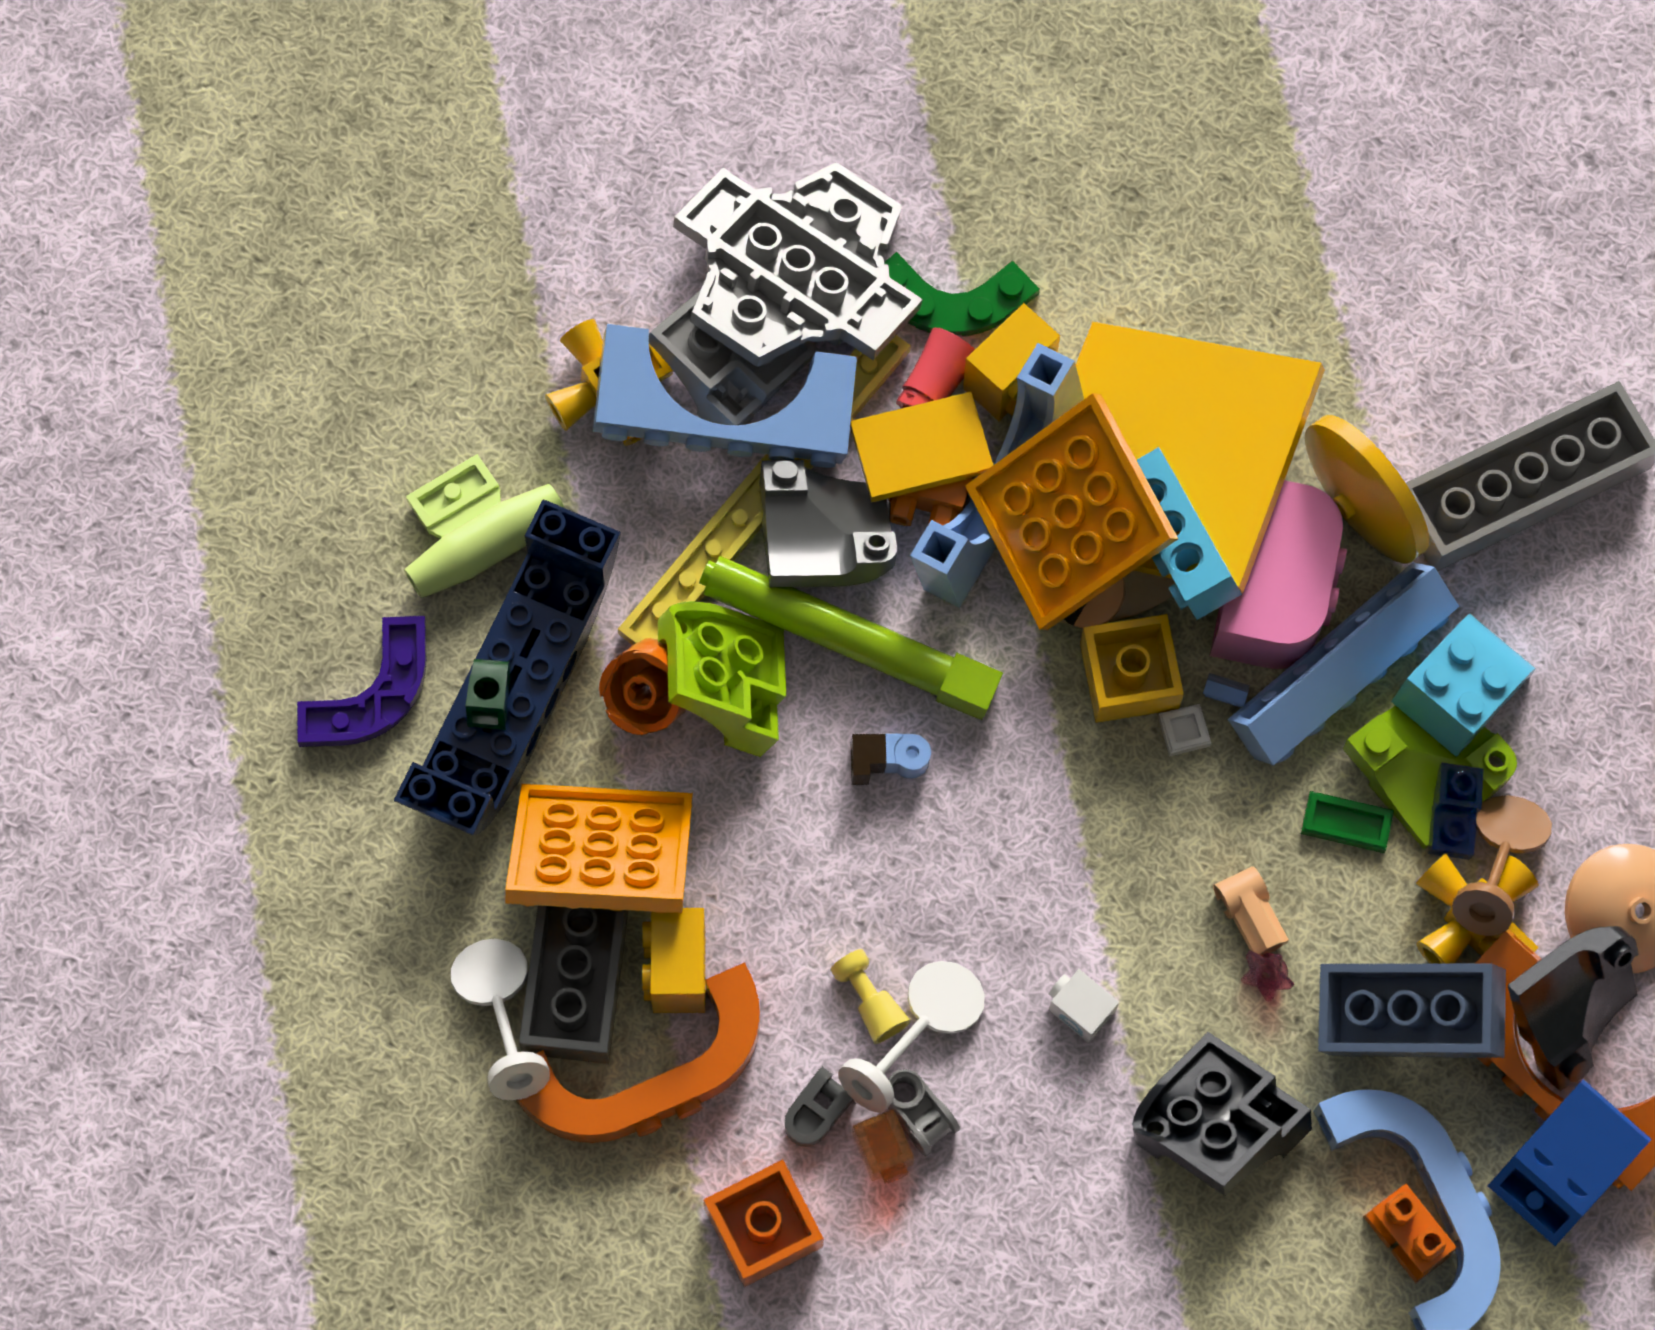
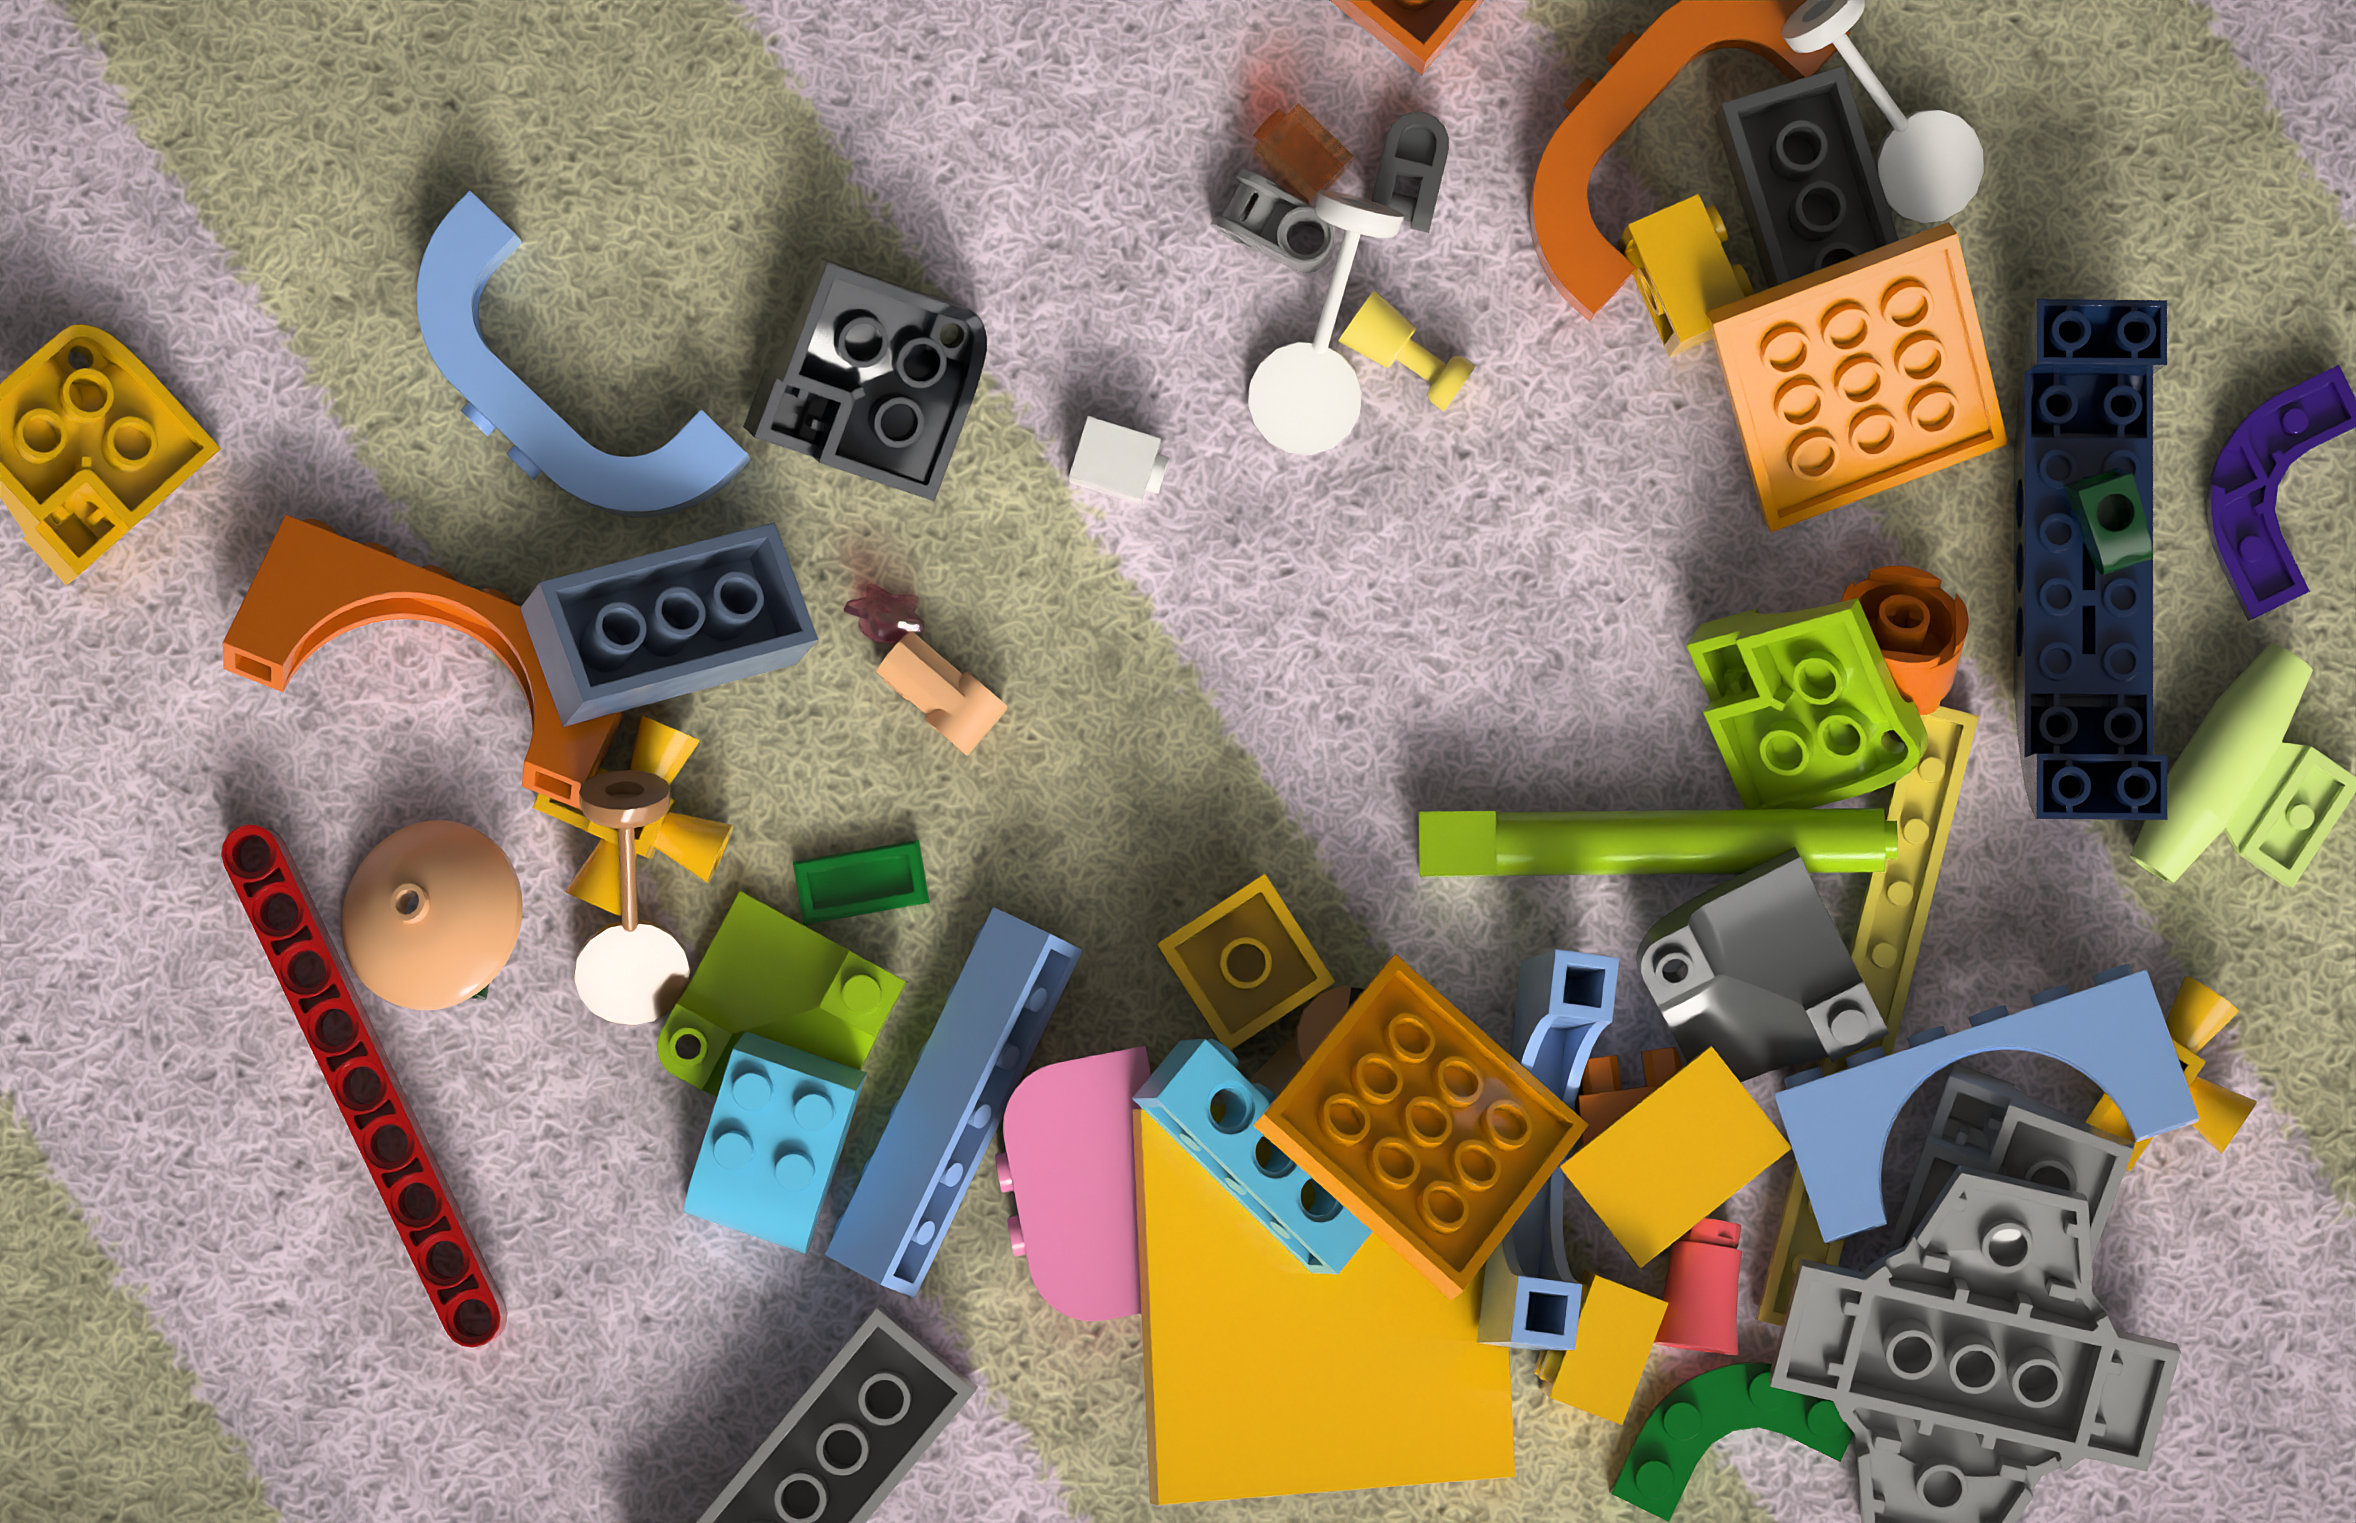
camera: 155 degrees right, 15 degrees up
(888, 753) = (1505, 710): leg -> none
(1184, 730) = (1136, 918): white tile -> none
(1226, 690) = (1102, 995): medium blue tile -> none
(1366, 489) = (1025, 1340): yellow dish -> none
(1420, 1238) = (560, 338): orange hips -> none
(1455, 811) = (717, 952): slope -> none
(1569, 1162) = (382, 506): blue slope -> none
(1572, 998) = (458, 732): black slope -> none

